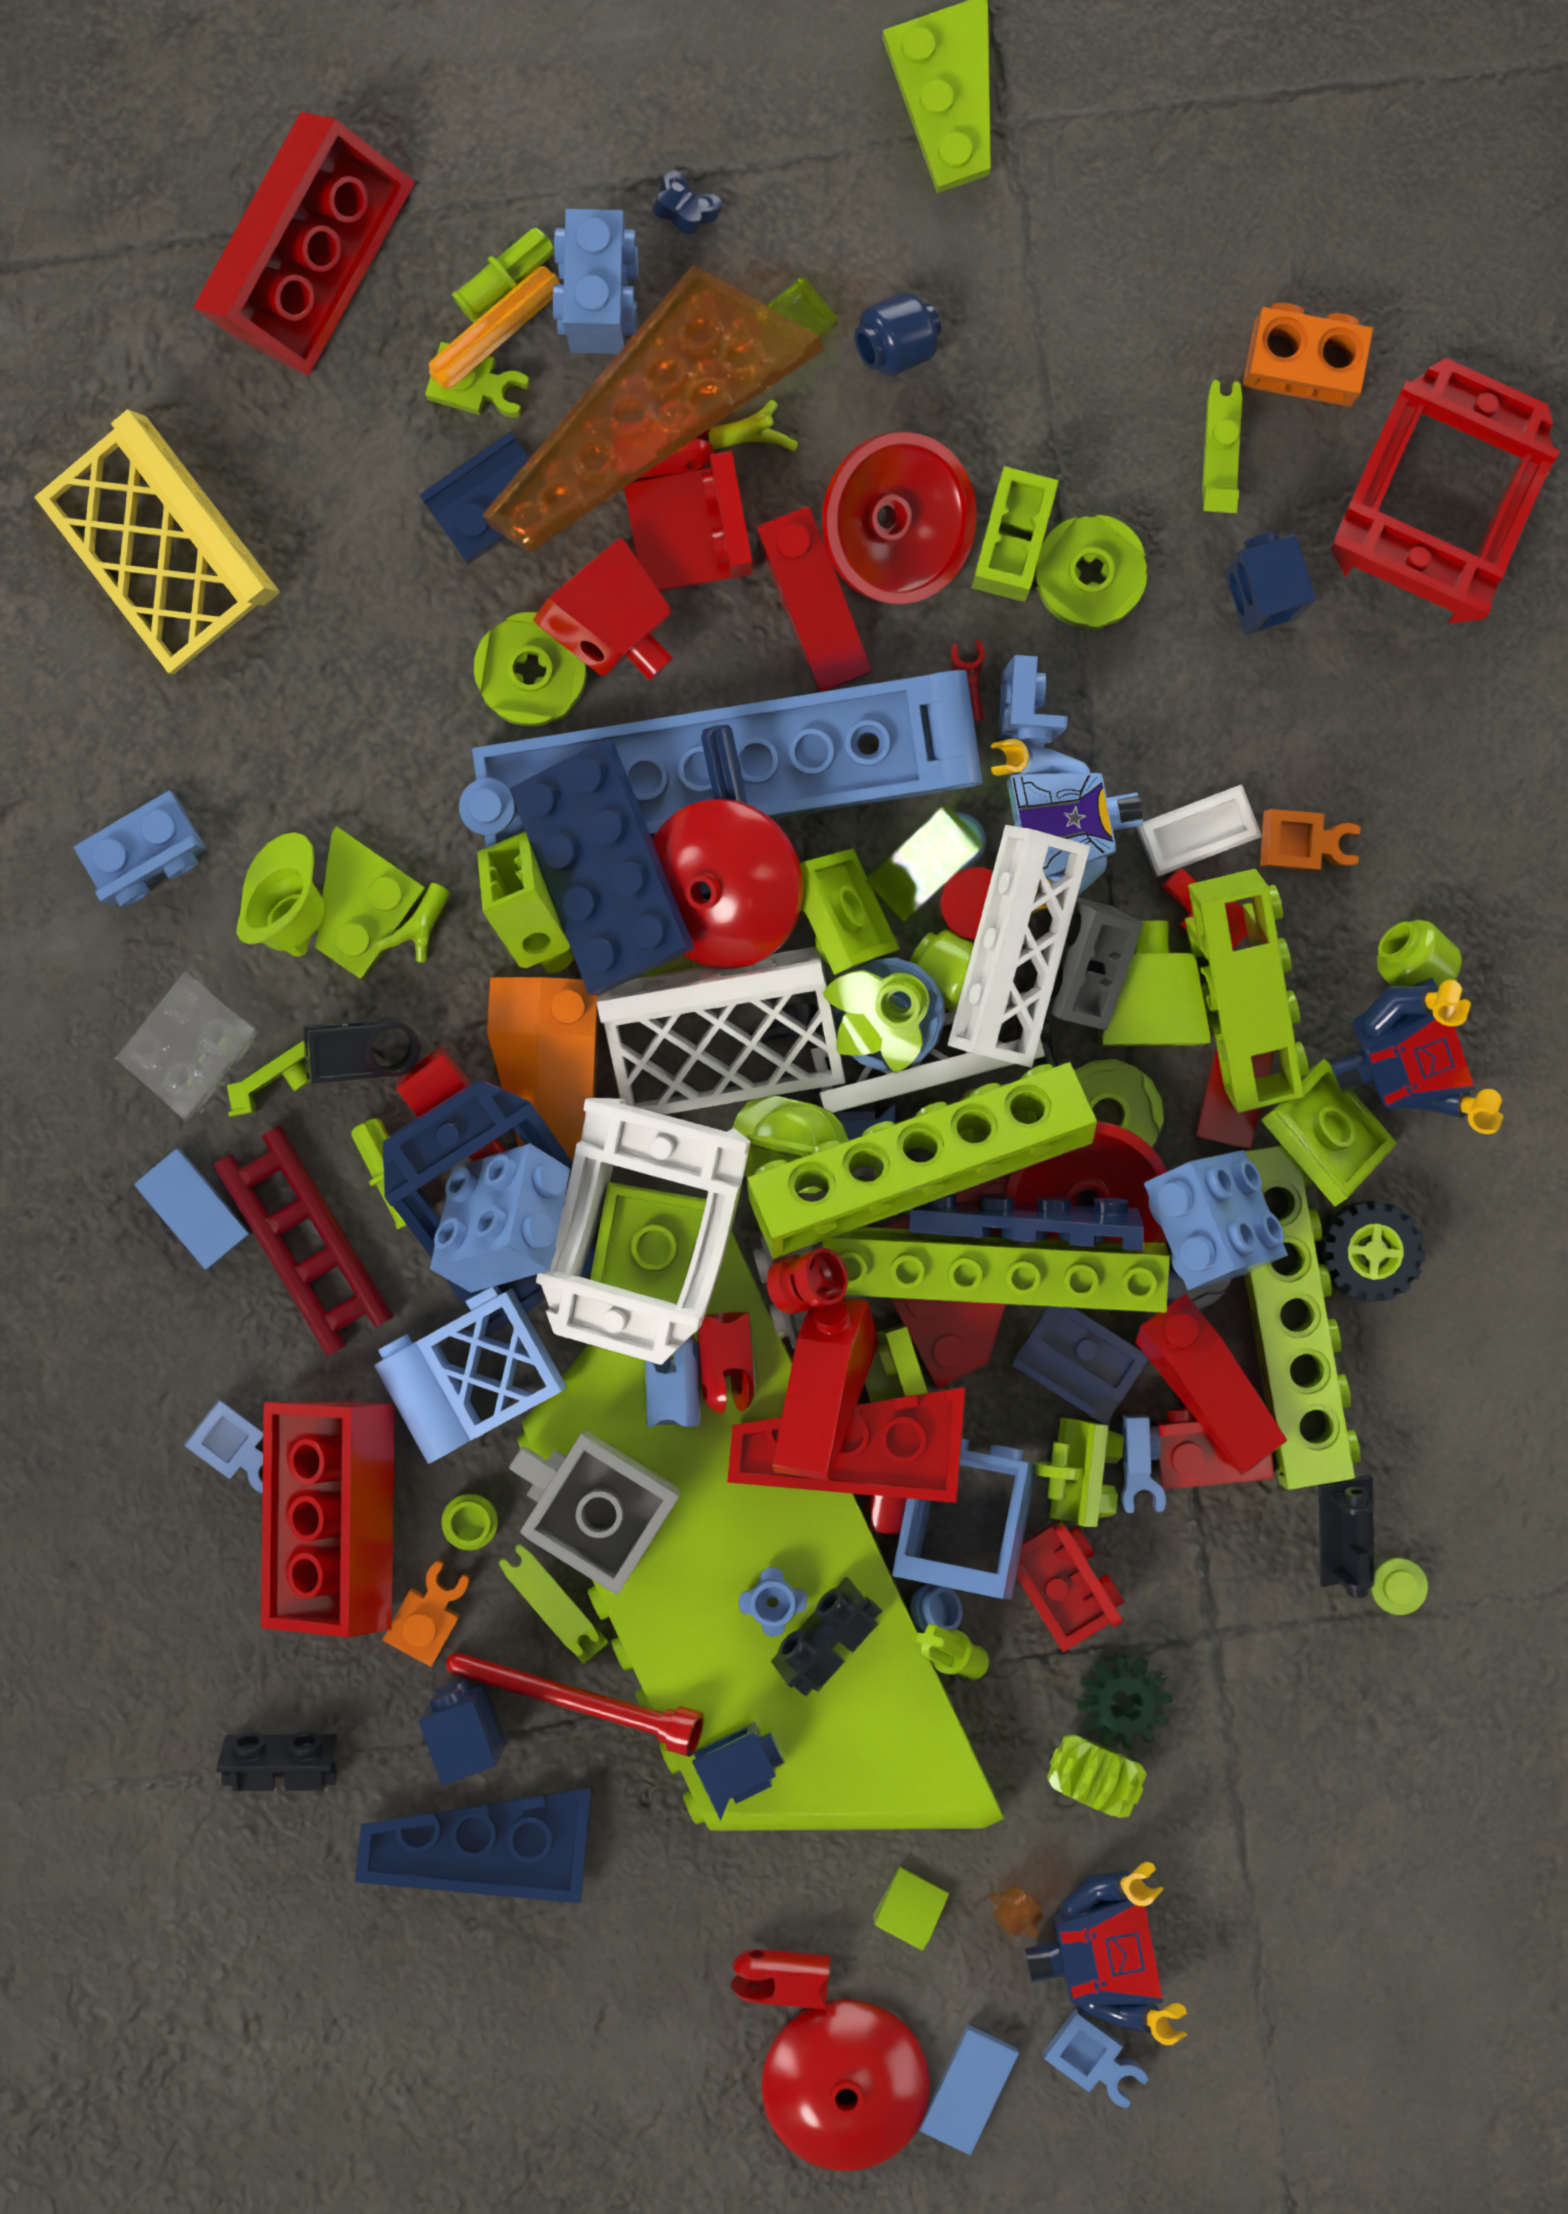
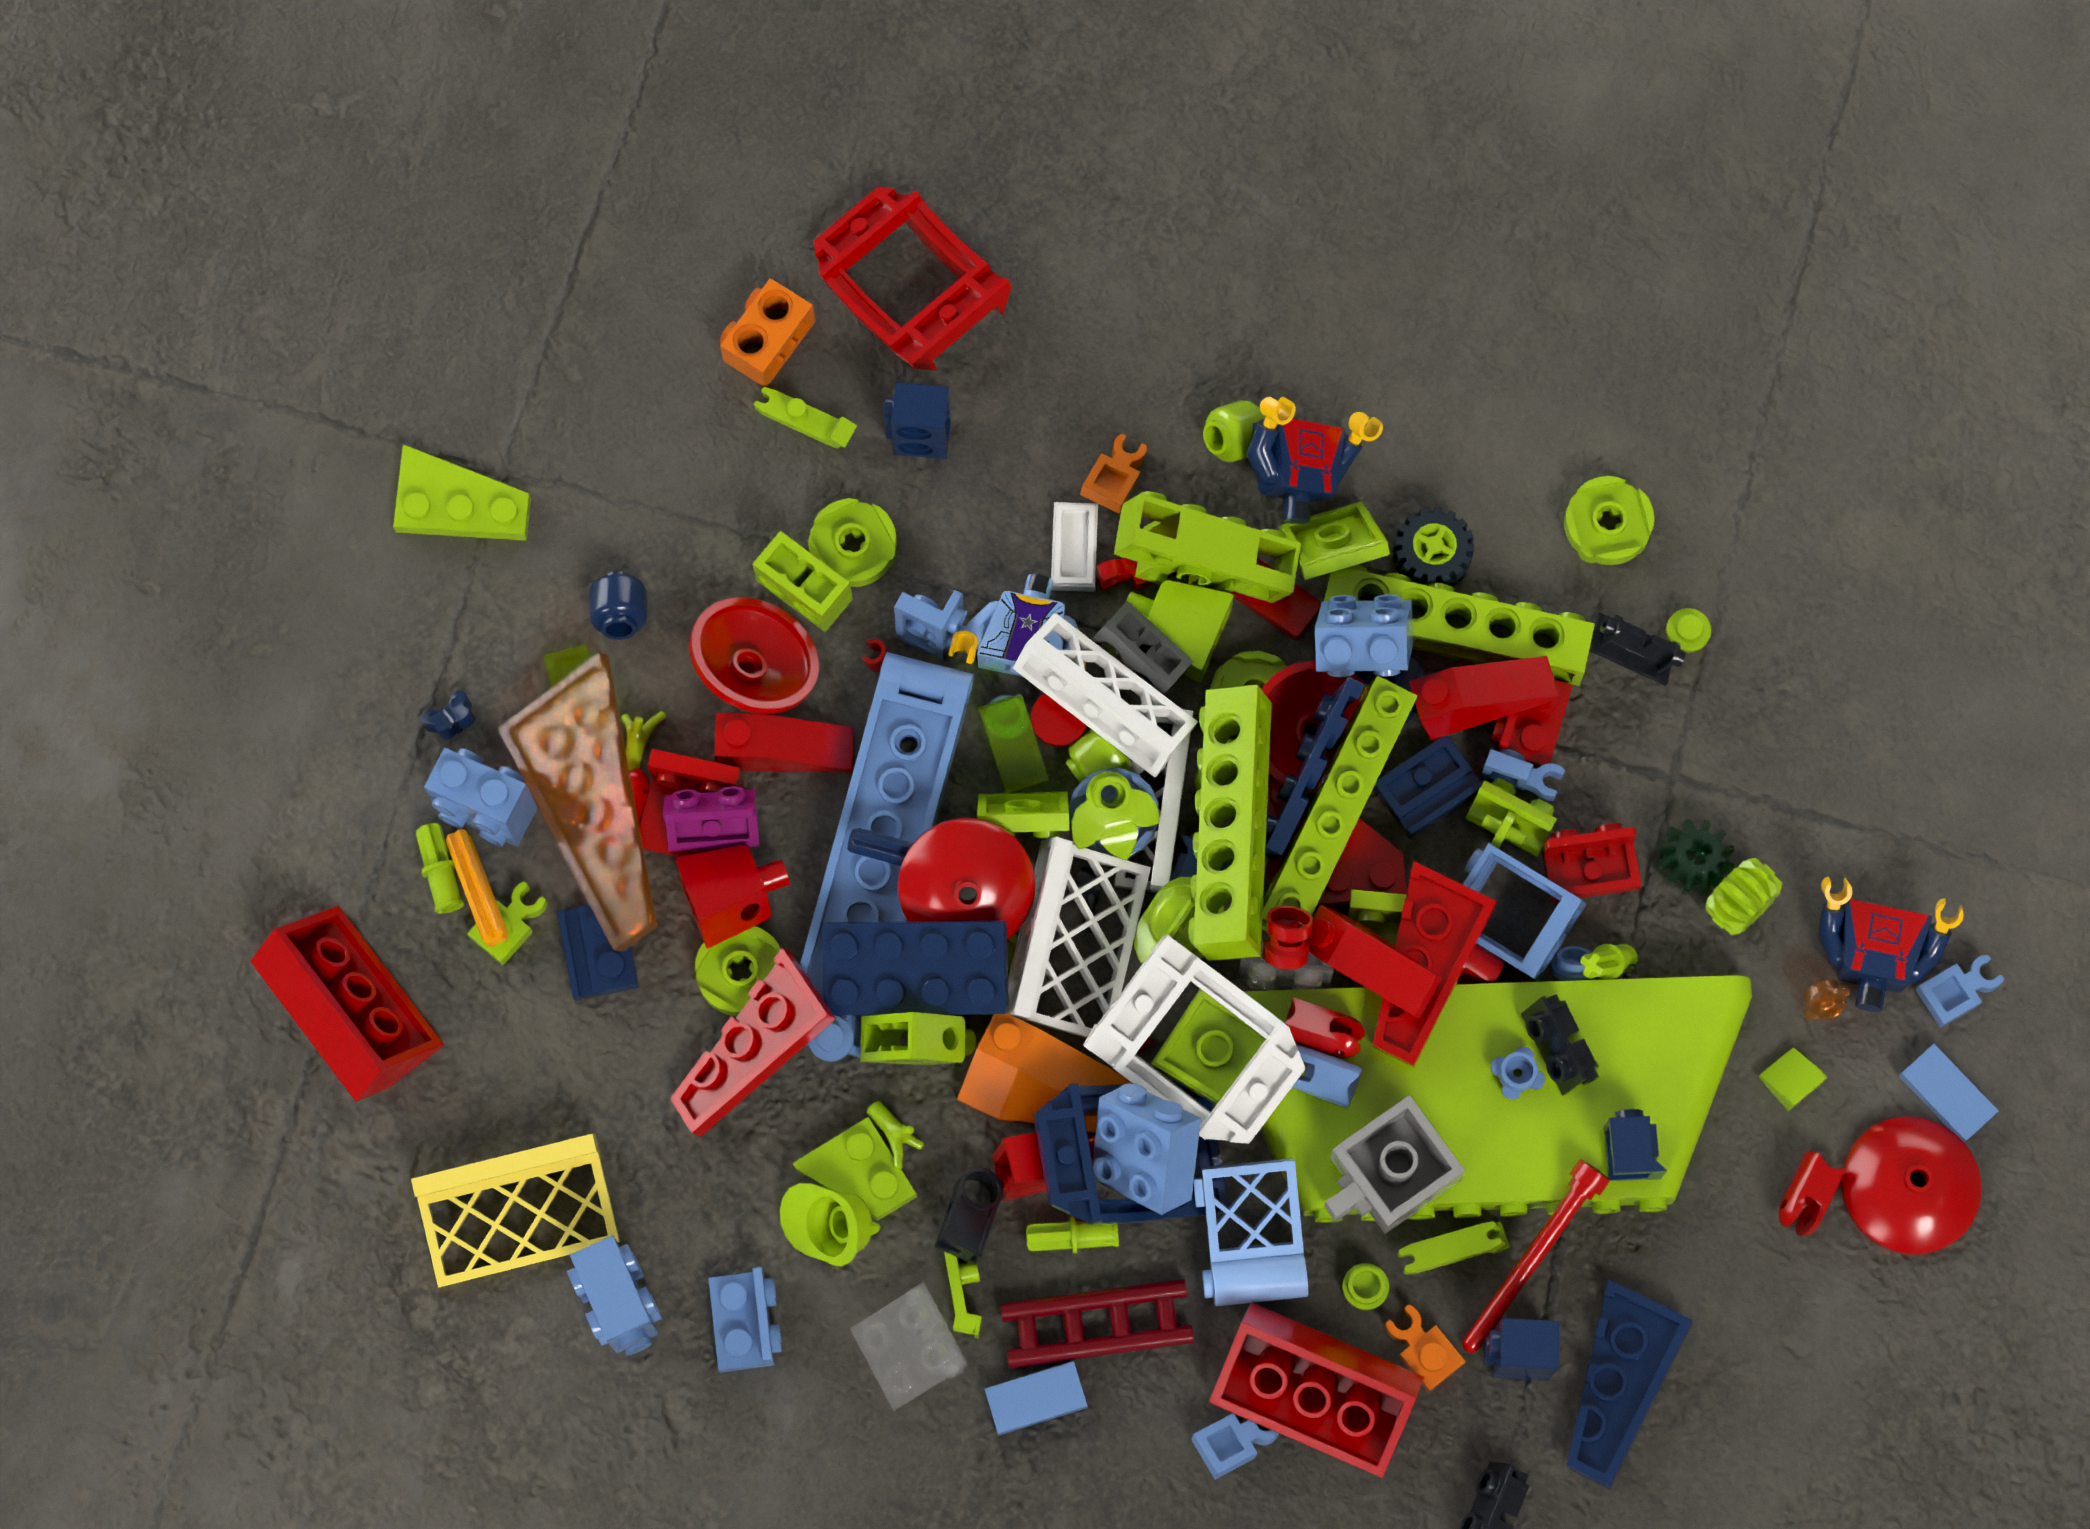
camera: 65 degrees left, 15 degrees down
(93, 697) = (621, 1310): none -> medium blue brick
(457, 730) = (767, 1032): none -> wing
(682, 557) = (711, 819): none -> magenta bracket
(1527, 1447) = (1594, 541): none -> lime plate

